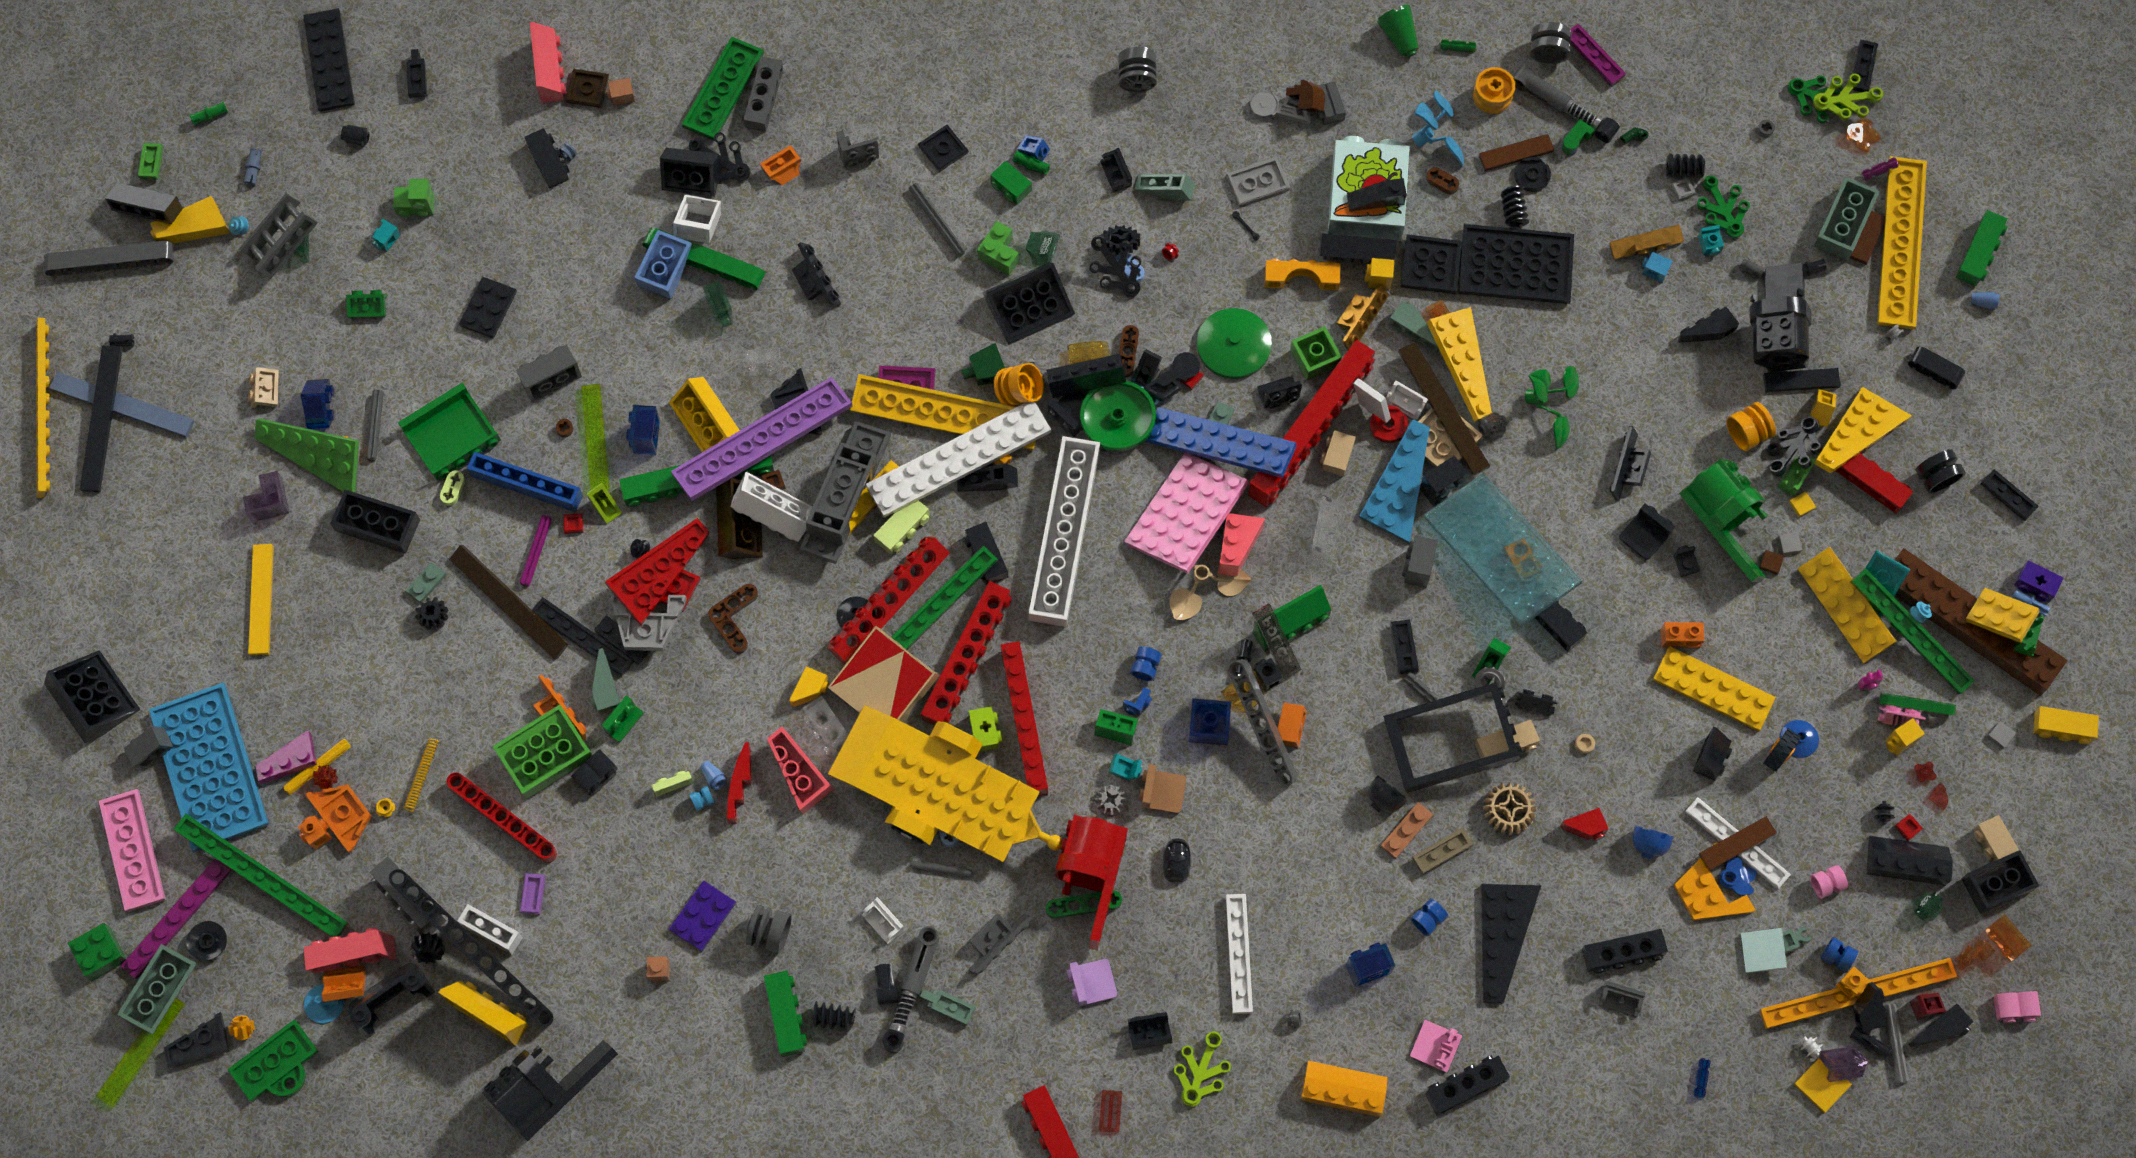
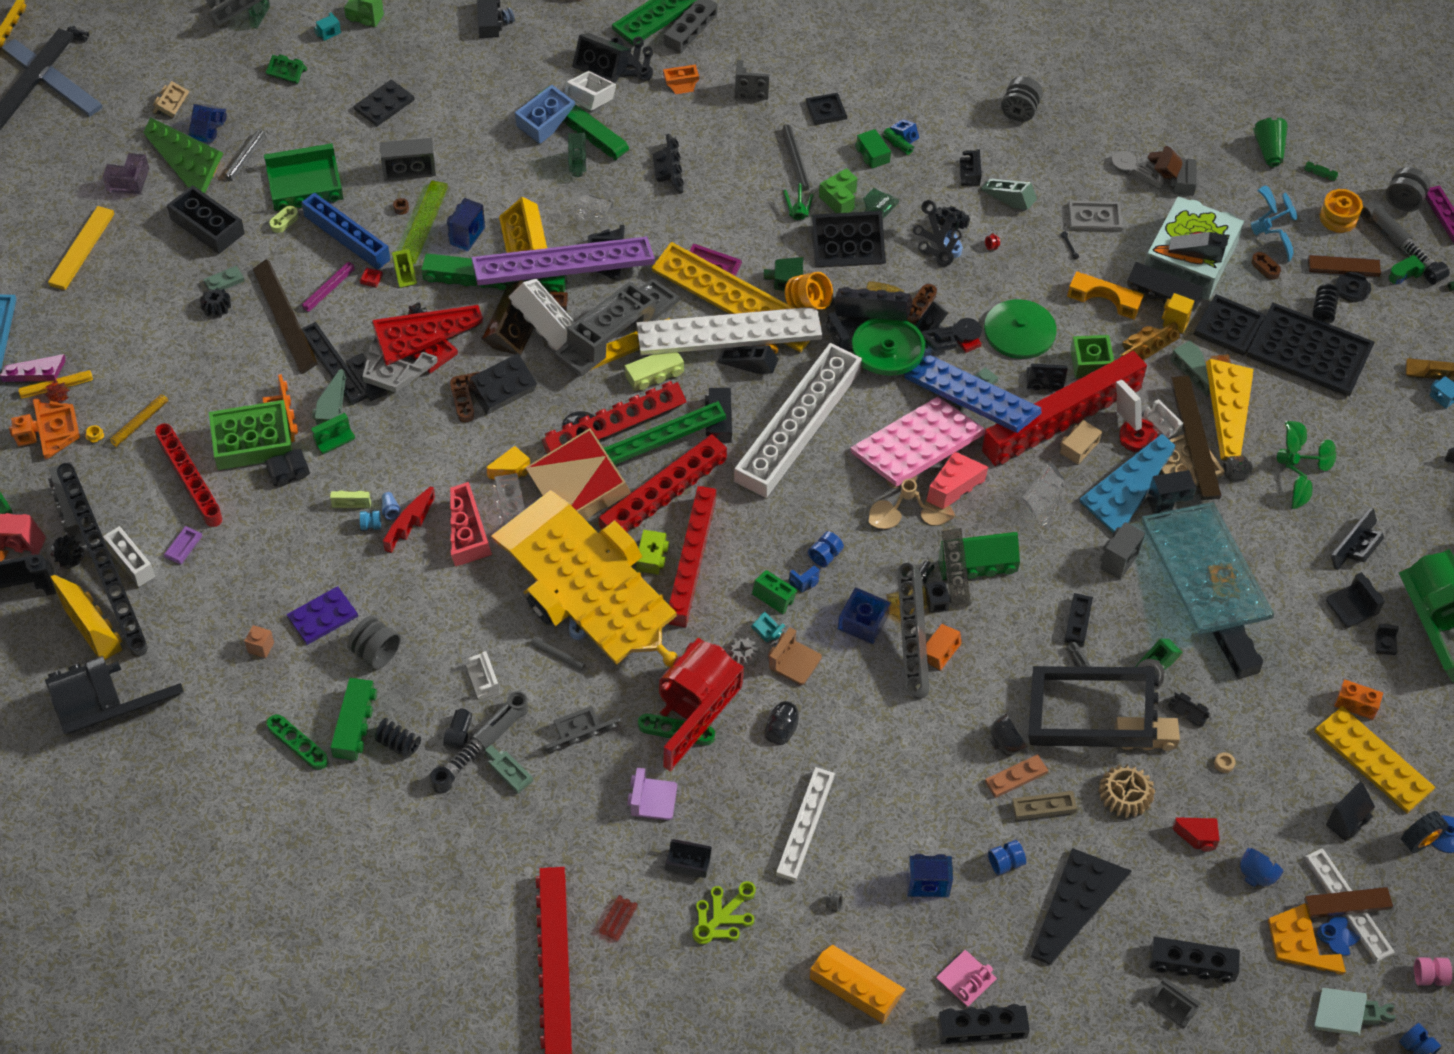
camera: 20 degrees right, 15 degrees down
(740, 1058) = (297, 742): none -> green beam
(763, 601) = (502, 383): none -> black brick
(966, 284) = (798, 211): none -> green plant

